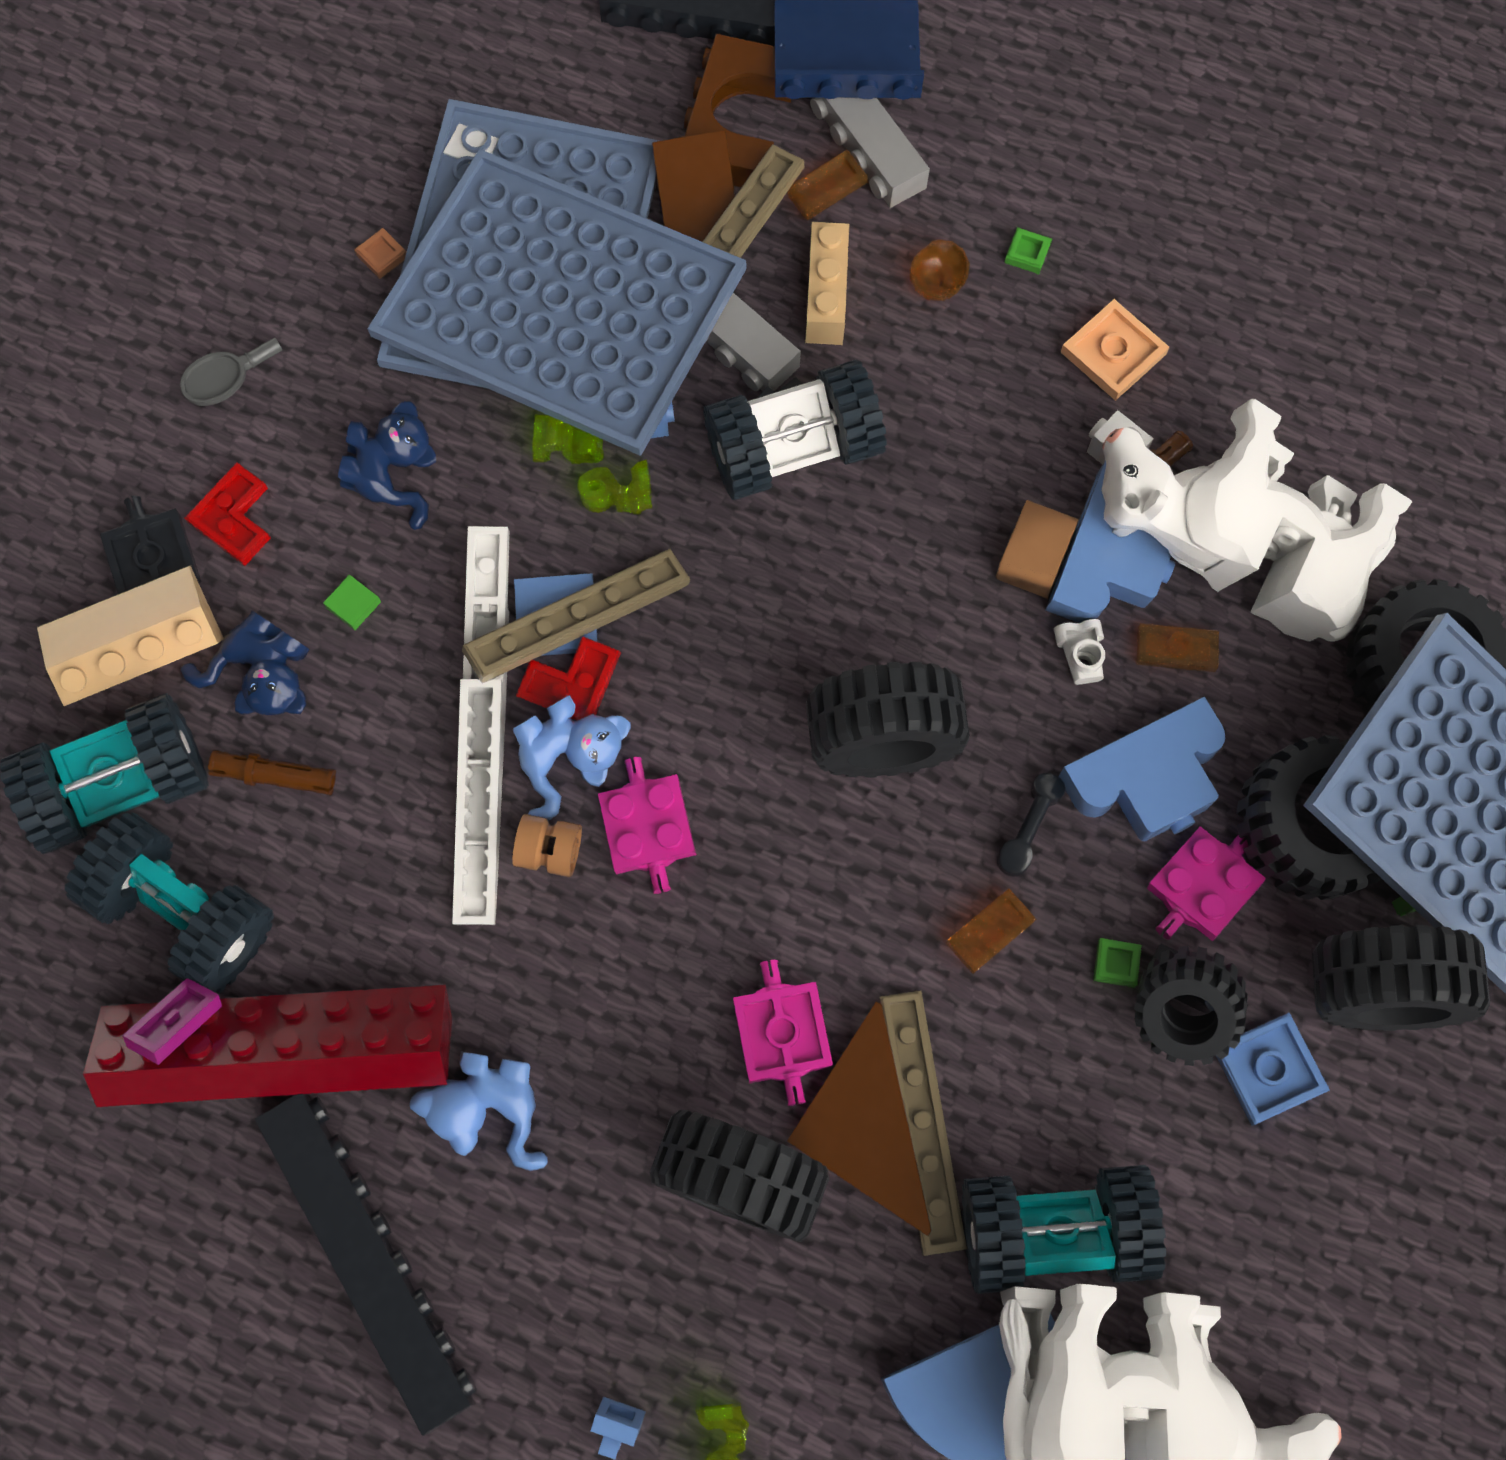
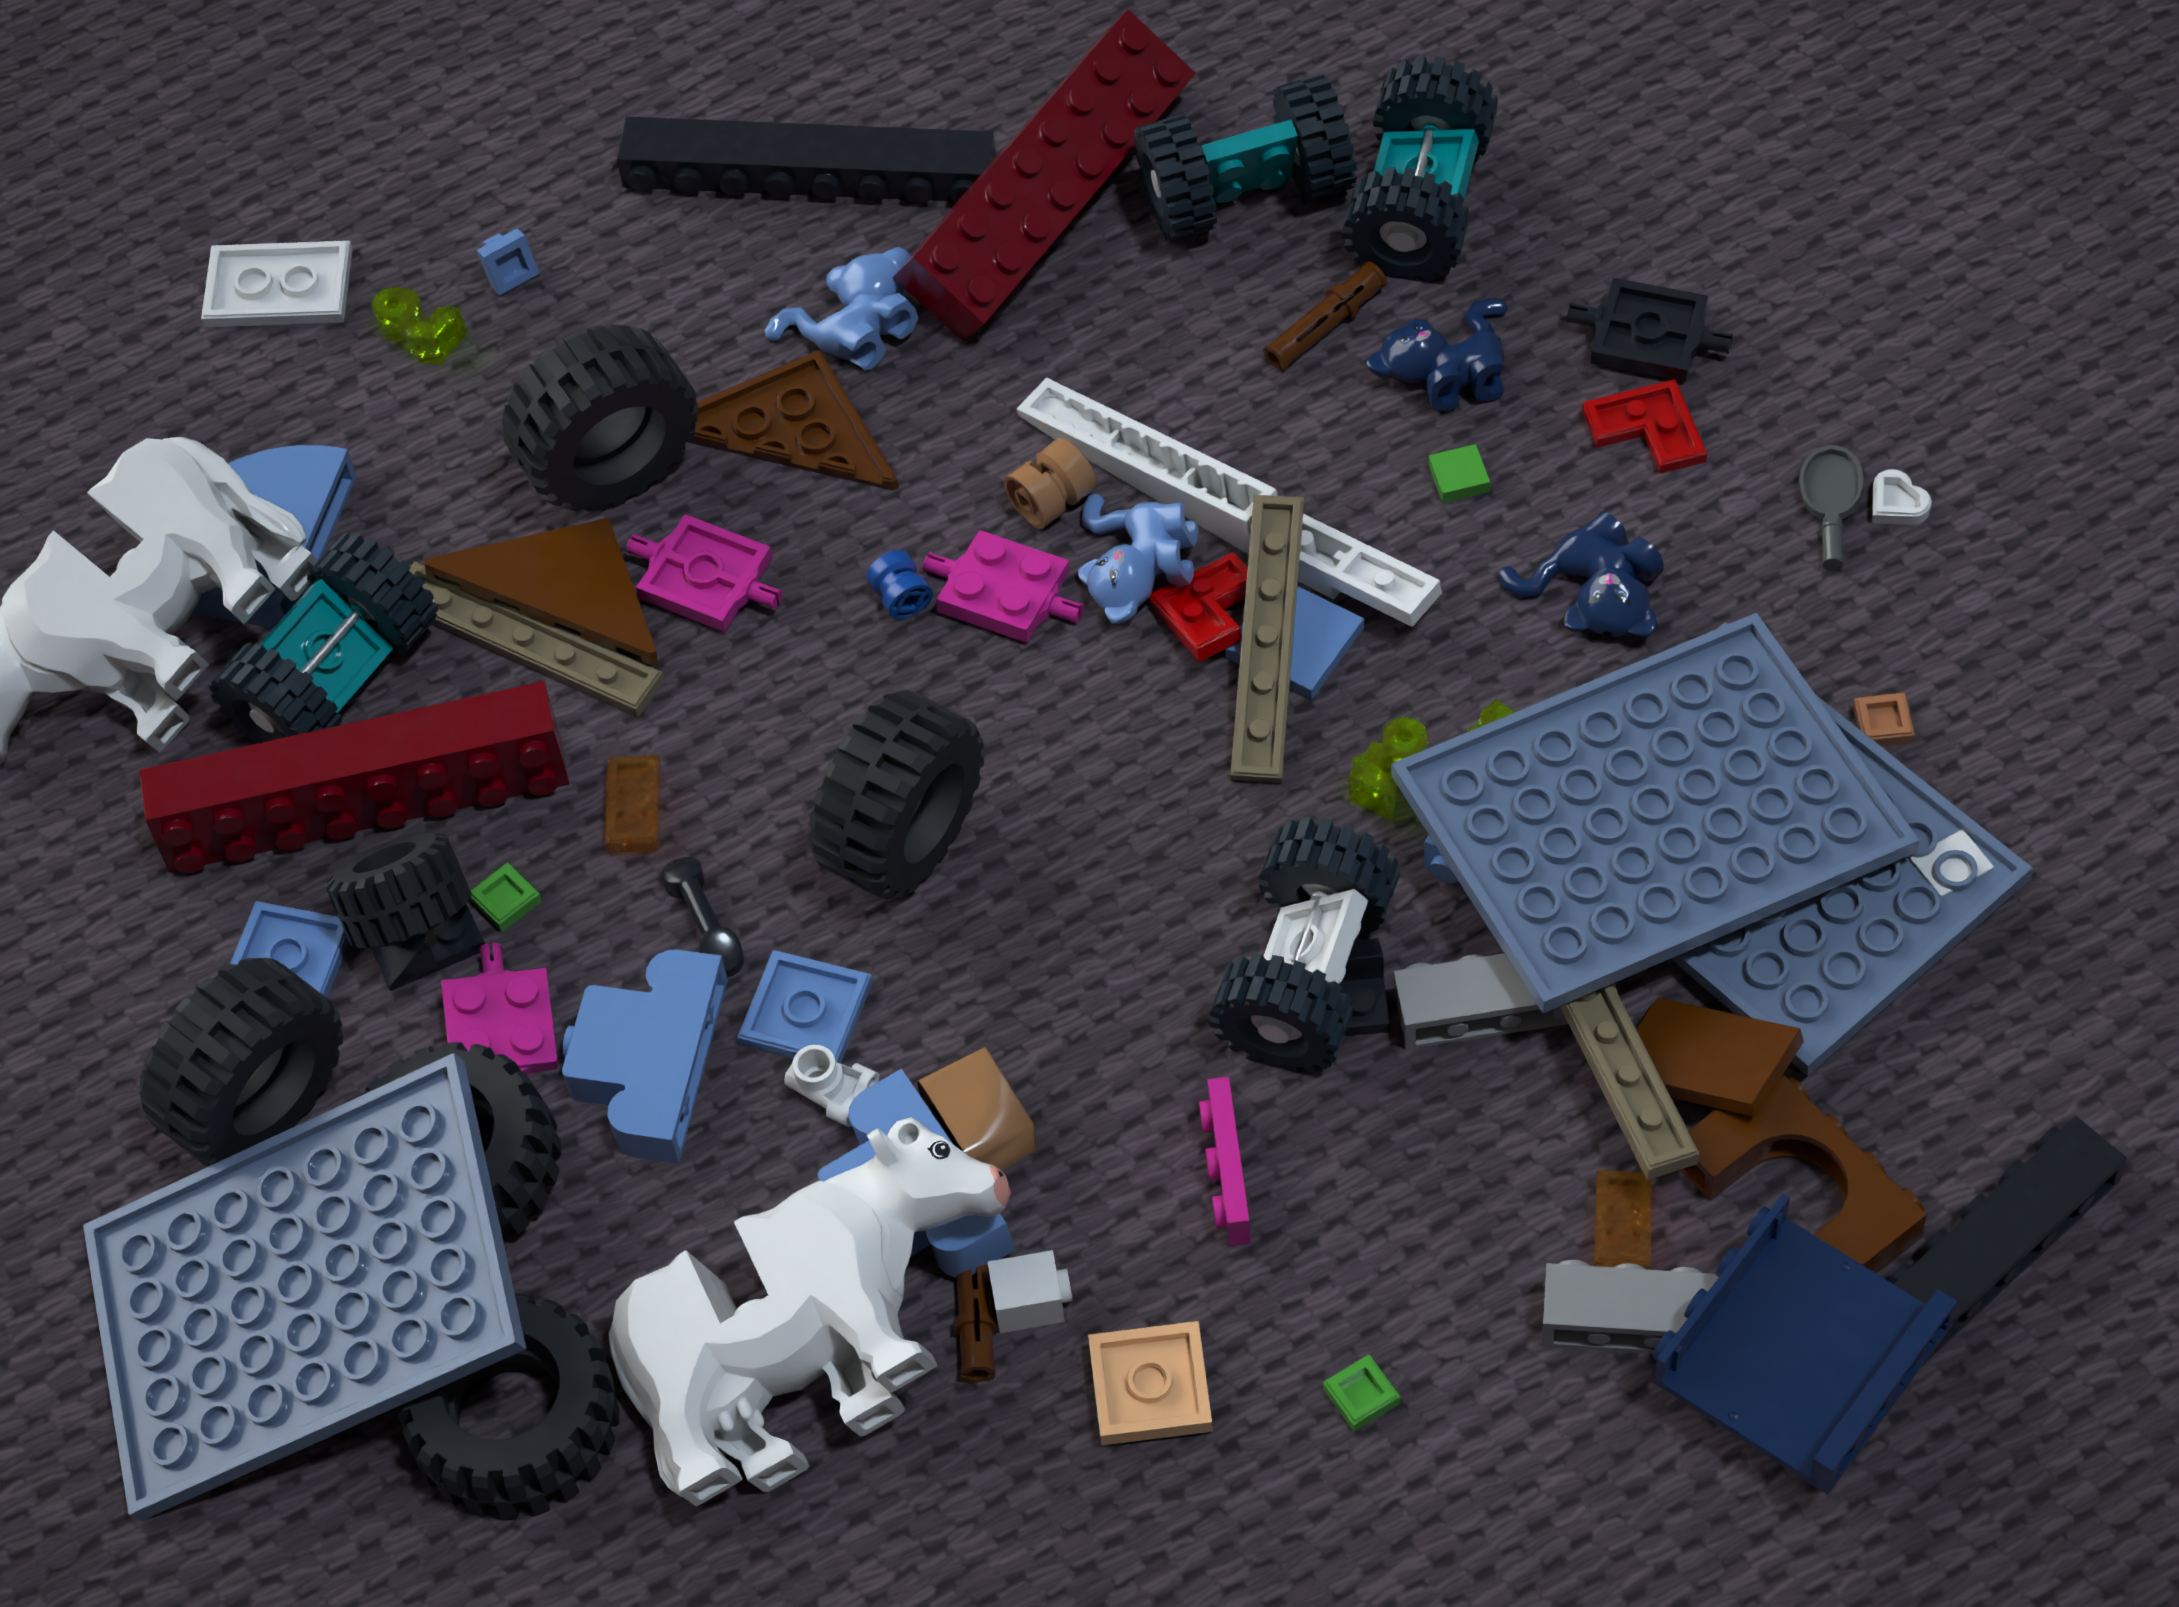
camera: 135 degrees right, 15 degrees down
(127, 635) = (1557, 257): tan slope -> none
(172, 1021) = (1116, 86): magenta plate -> none
(199, 338) = (1897, 500): none -> white tile
(606, 1078) = (795, 420): none -> reddish brown tile
(698, 887) = (901, 587): none -> blue wheel
(827, 283) = (1480, 1123): tan brick -> none
(939, 262) = (1411, 1247): clear orange hair -> none
(954, 398) = (1225, 1162): none -> dark pink plate
(1042, 711) = (804, 1005): none -> medium blue tile
(1138, 1121) = (354, 778): none -> dark red brick
(1177, 647) = (754, 1186): clear orange plate -> none

